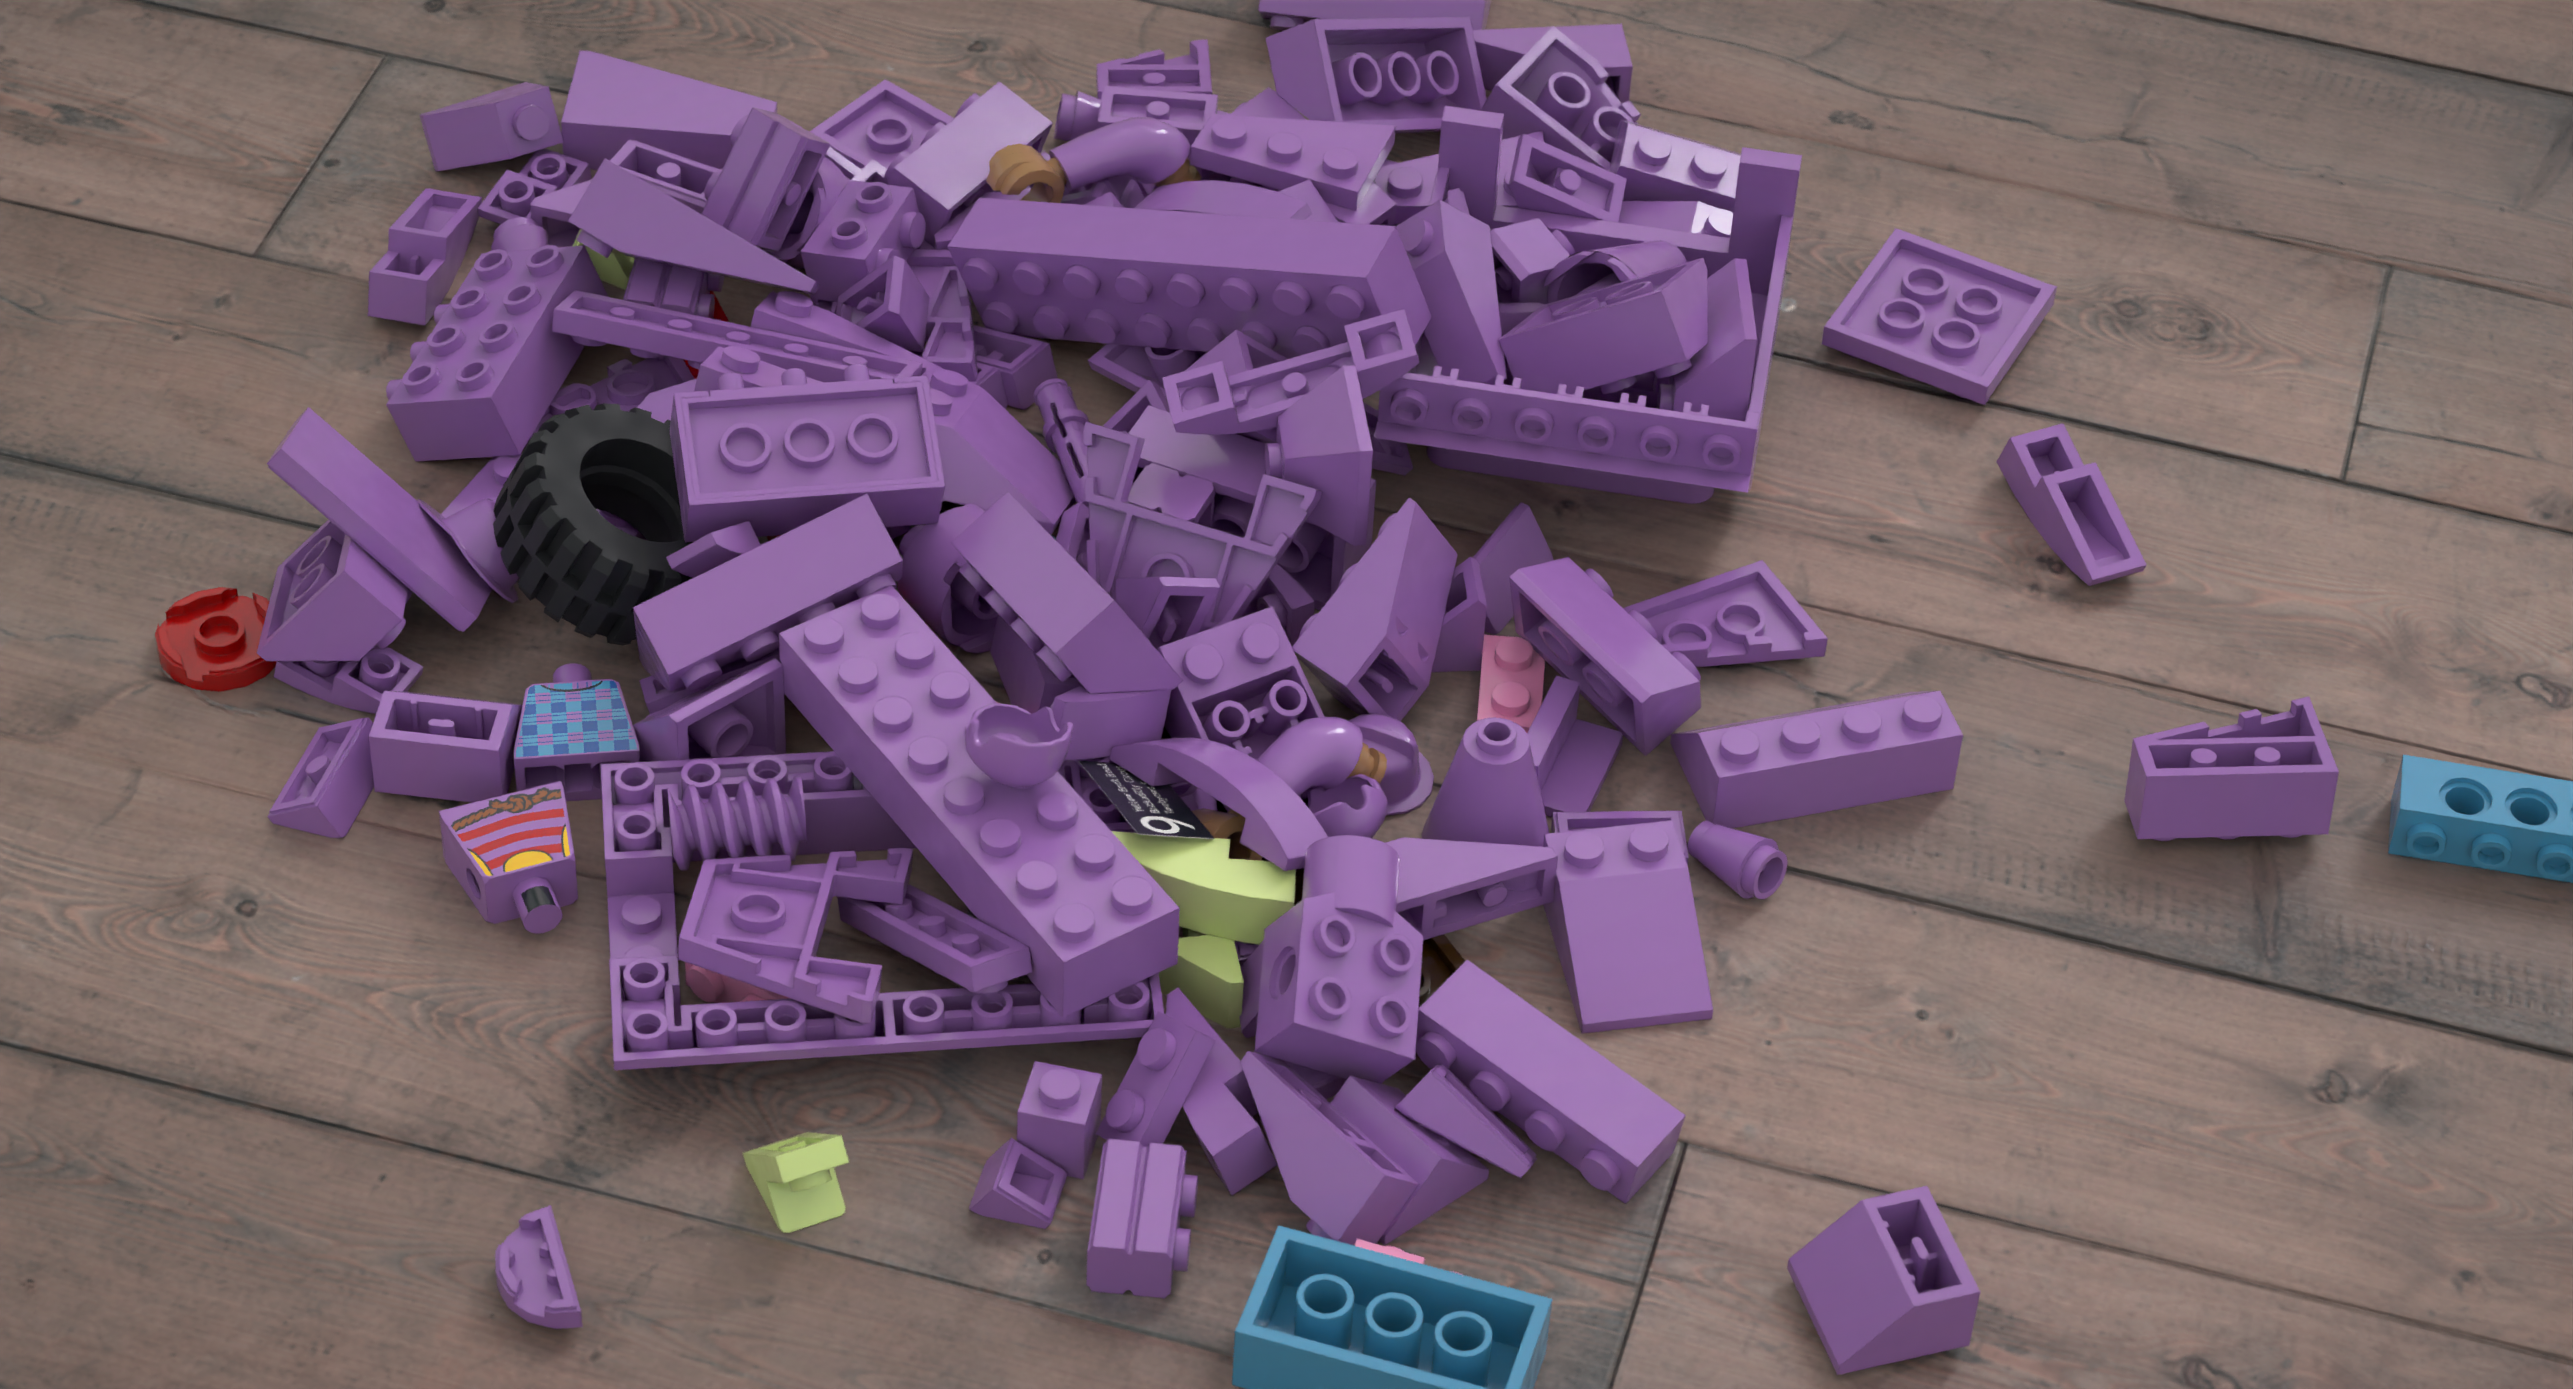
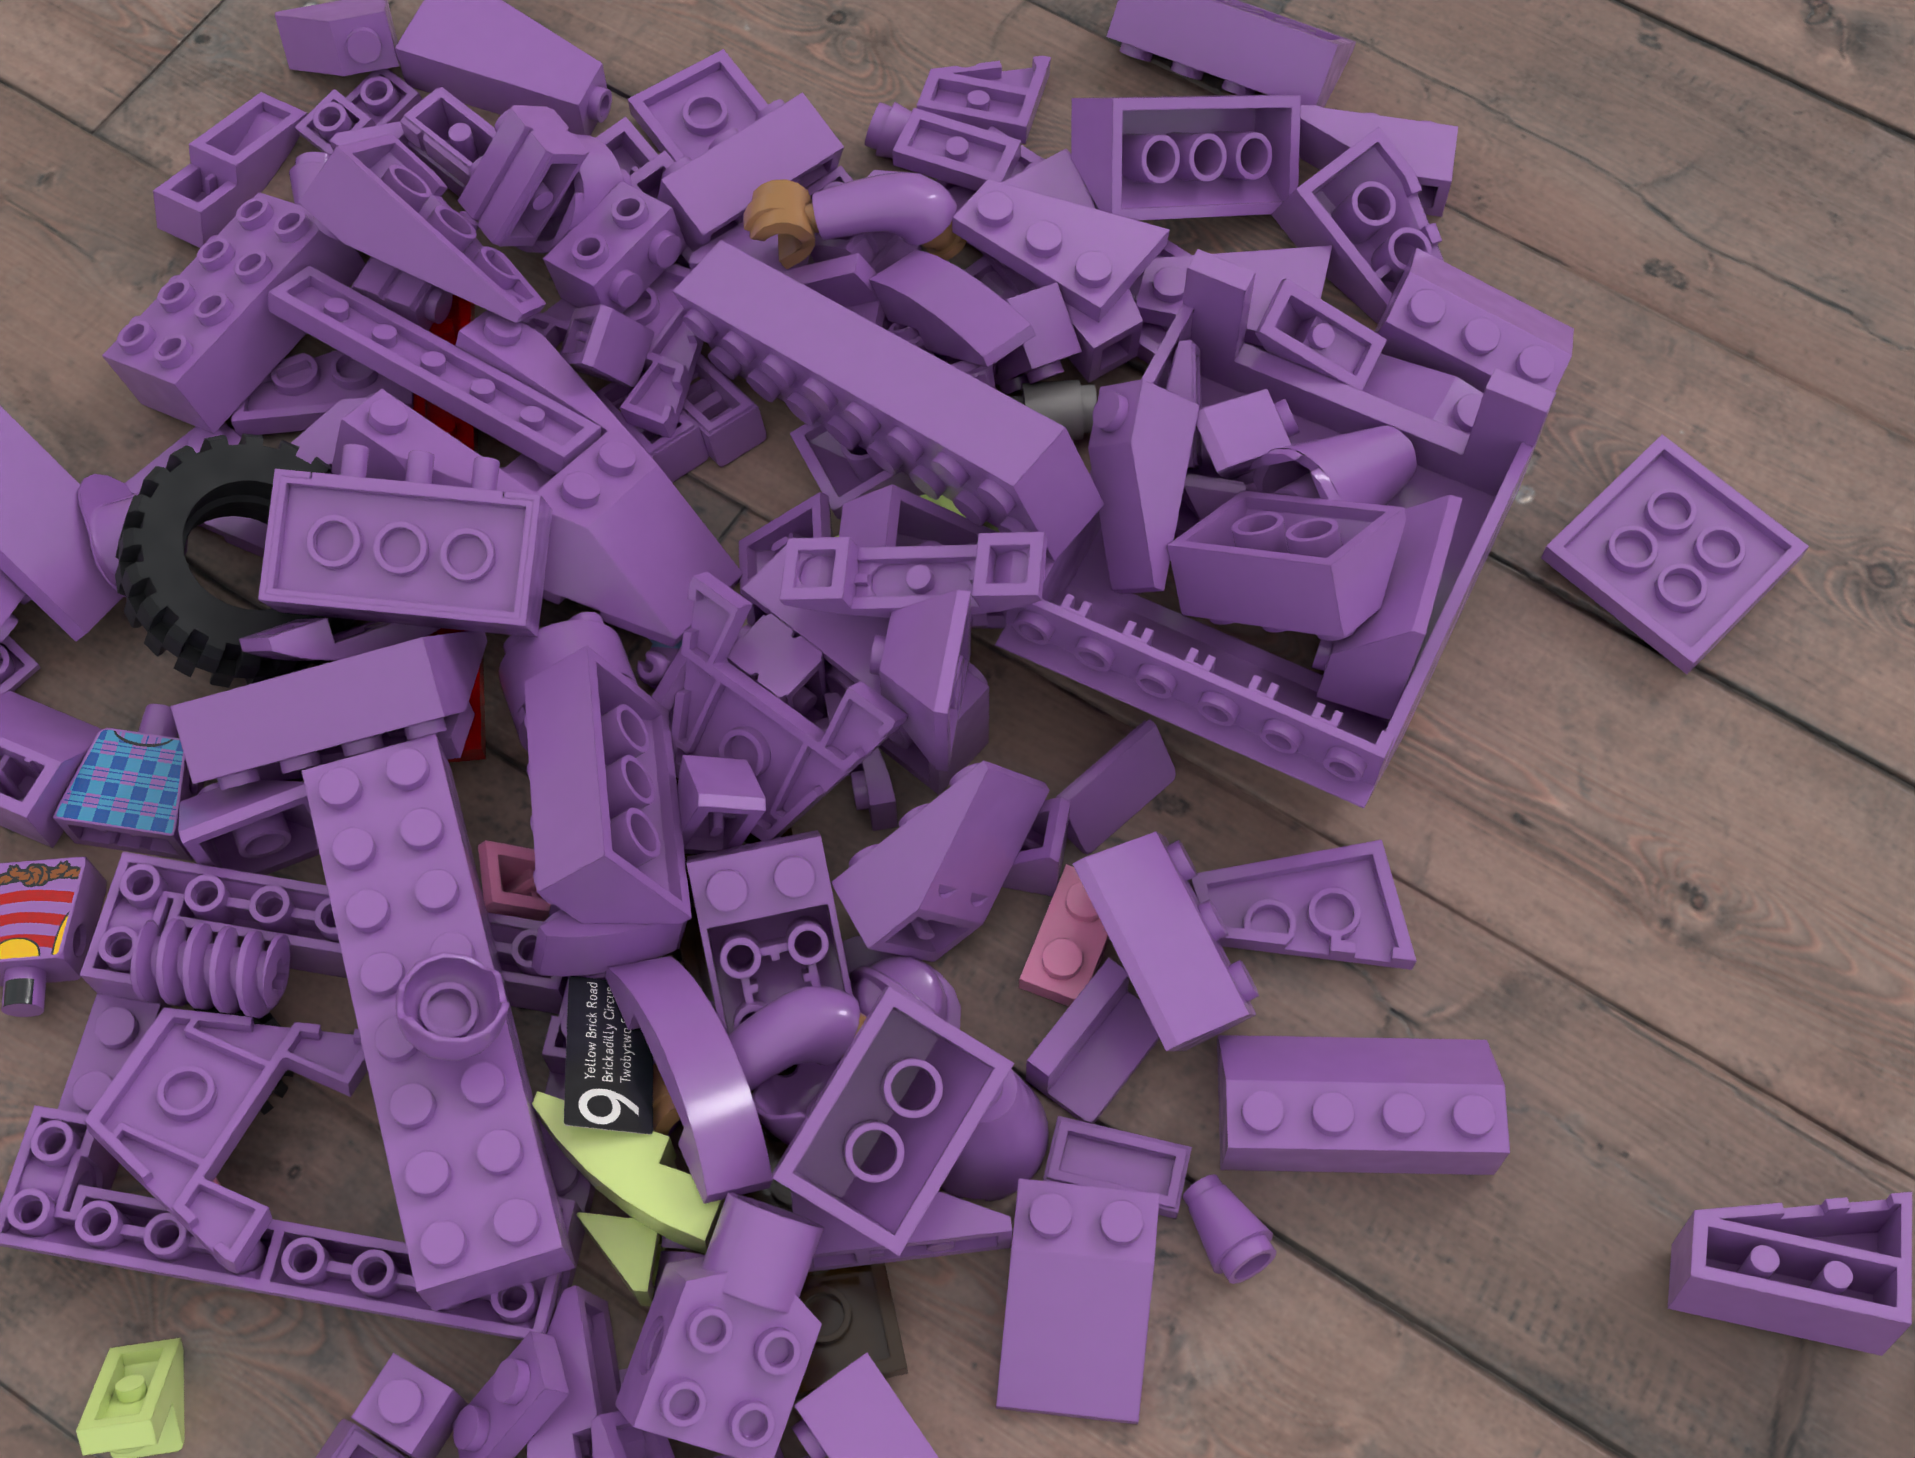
camera: 20 degrees right, 20 degrees up
(941, 939) = (358, 1179): medium lavender plate -> none
(1064, 431) = (739, 521): medium lavender pin -> none
(1432, 761) = (892, 1120): none -> medium lavender slope
(2070, 505) = (1735, 841): medium lavender slope -> none

